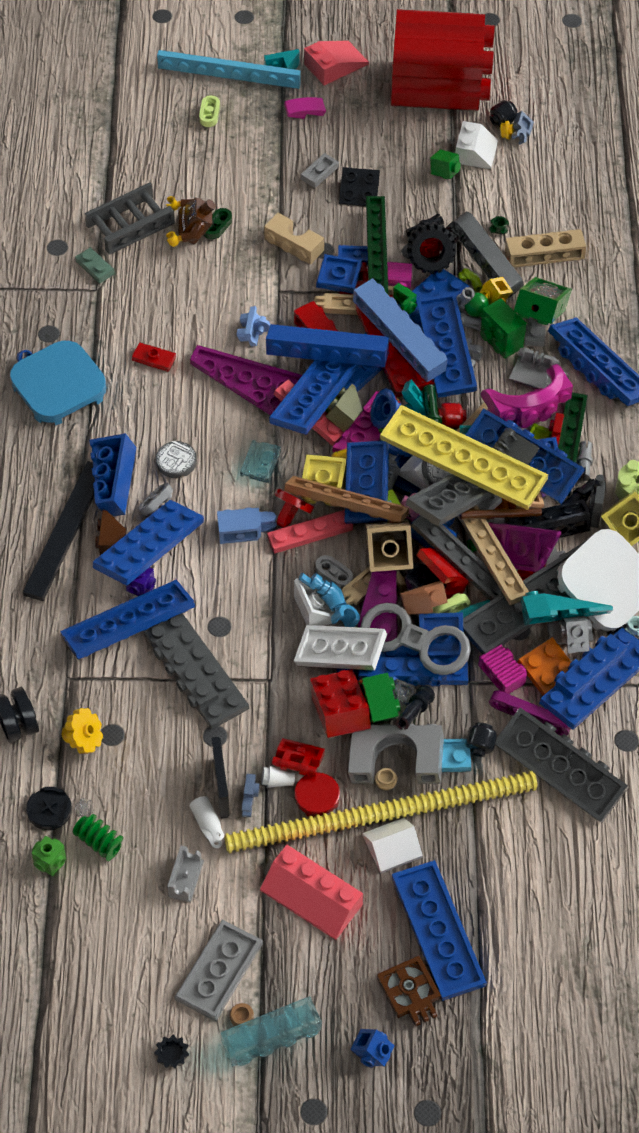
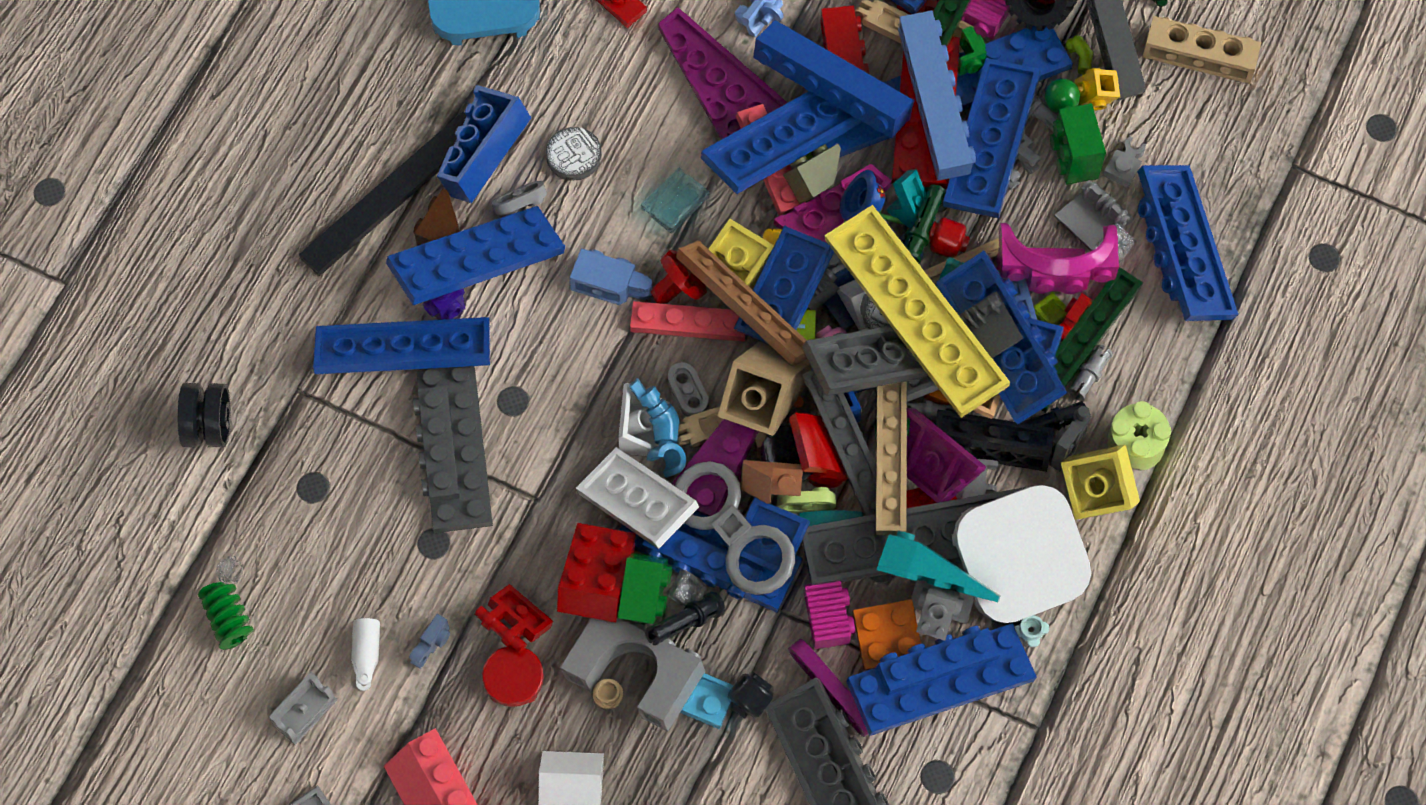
camera: 25 degrees right, 10 degrees up
(48, 855) = (156, 612): bright green brick -> none
(49, 808) = (190, 550): black tile -> none
(83, 731) = (274, 471): yellow plant -> none
(220, 777) = (403, 604): black tile -> none
(276, 778) = (472, 632): white cone -> none
(381, 811) = (578, 734): light yellow piece -> none
(463, 298) = (1045, 79): light grey pin -> none
(500, 513) = (929, 404): reddish brown bar -> none
(542, 300) = (1147, 127): green brick -> none

